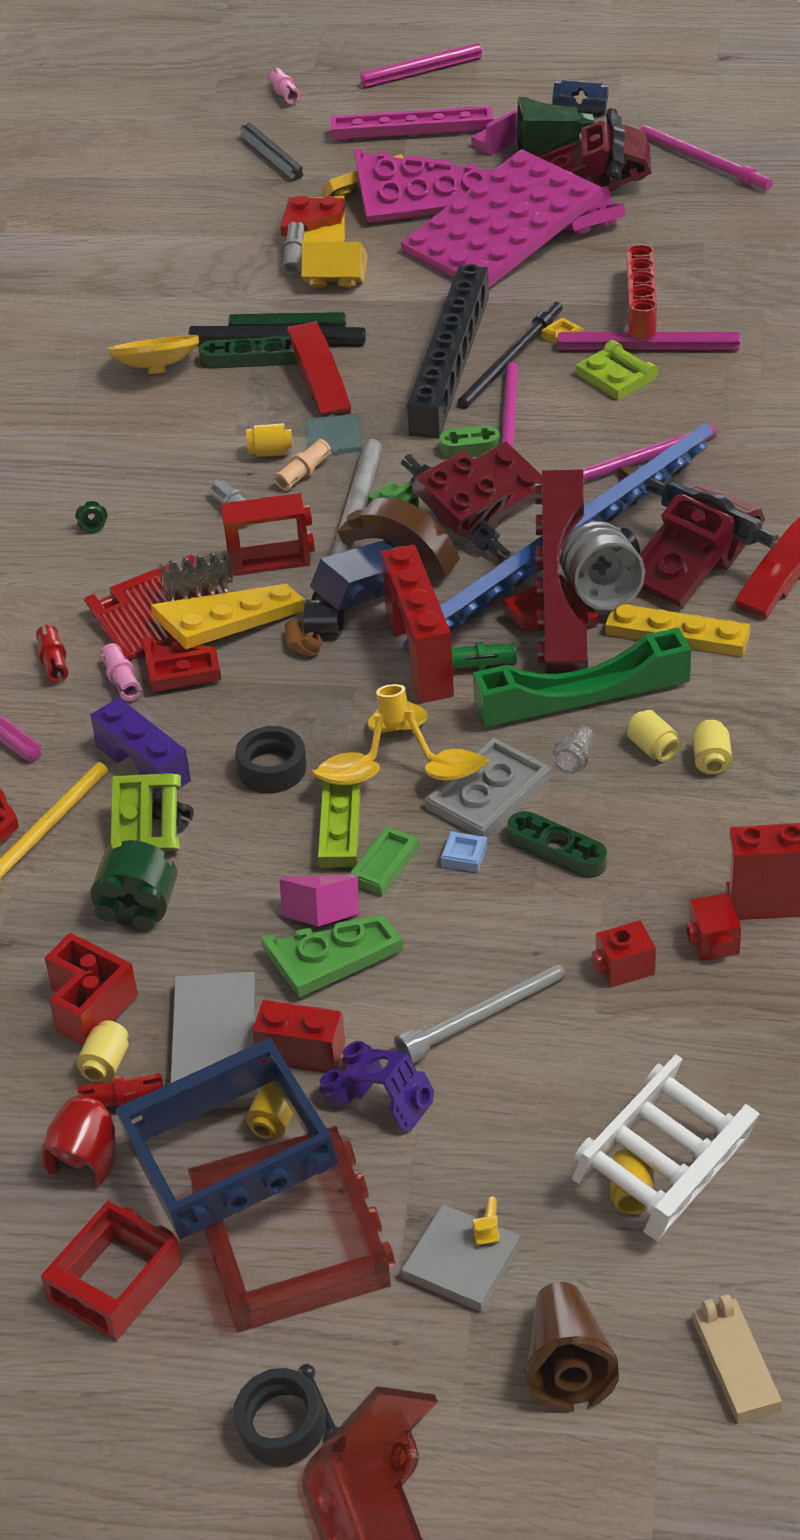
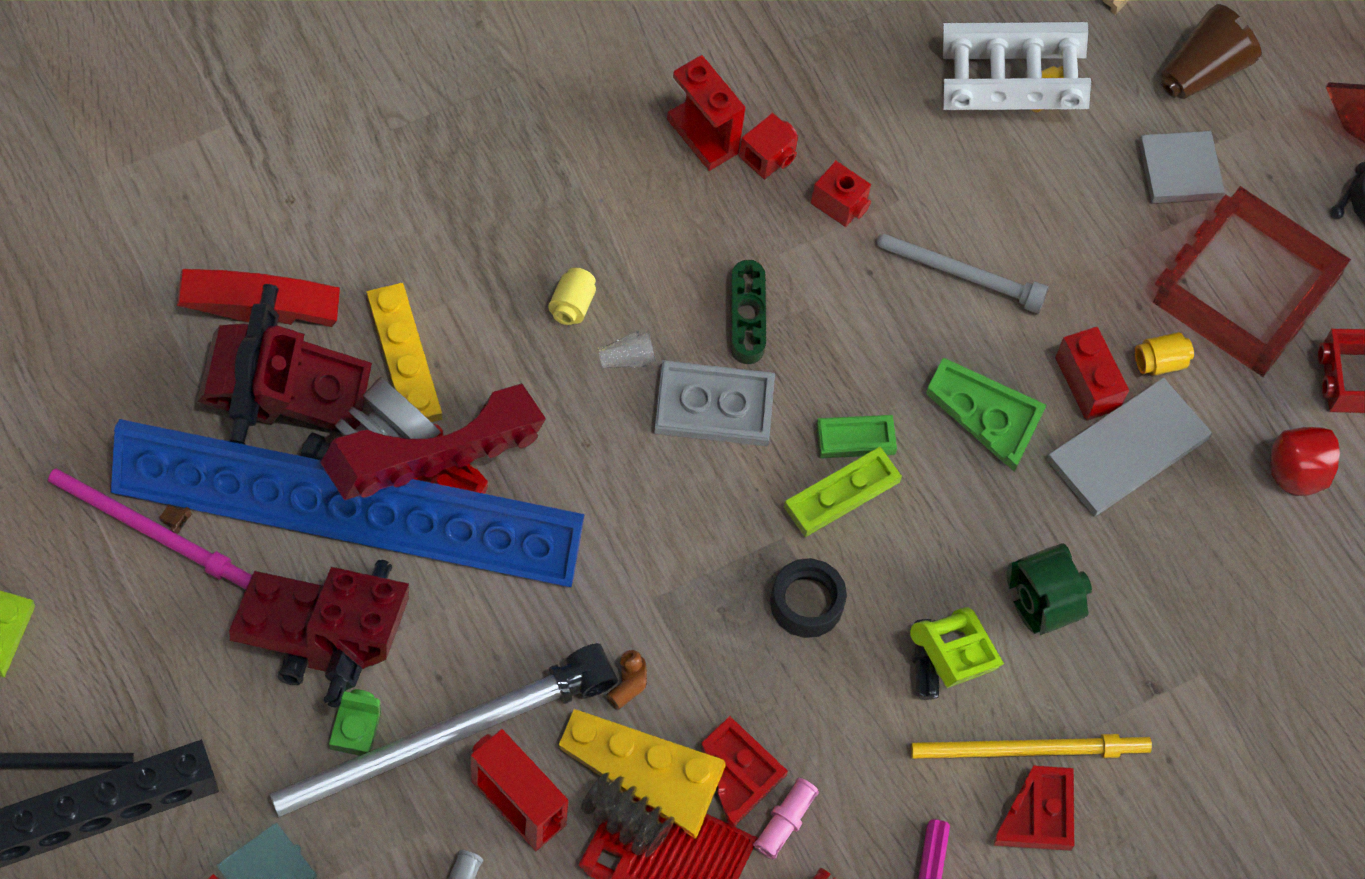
camera: 135 degrees left, 20 degrees up
(88, 986) = (1164, 550): red brick -> none
(103, 1051) = (1208, 511): light yellow brick -> none
(121, 1090) = (1230, 475): red pin -> none
(126, 733) = (878, 717): dark purple arch -> none
(206, 1091) = (1216, 385): dark blue window -> none
(302, 464) = (352, 857): light nougat pin -> none
(319, 898) = (949, 445): dark pink slope -> none
(351, 575) = (528, 648): dark blue brick -> none
(394, 714) = (679, 524): yellow plant -> none
(403, 526) = (446, 657): reddish brown arch -> none
(408, 1089) = (1092, 307): dark purple piece -> none
(416, 612) = (604, 515): red arch -> none
(464, 852) = (803, 379): light blue tile -> none
(473, 440) = (214, 703): bright green beam -> none
(486, 1228) = (1158, 148): yellow hand -> none
(503, 655) = (548, 491): green pin -> none
(509, 406) = (216, 653): dark pink bar -> none
(649, 664) = (588, 419): green arch -> none
(712, 747) = (560, 242): light yellow brick -> none

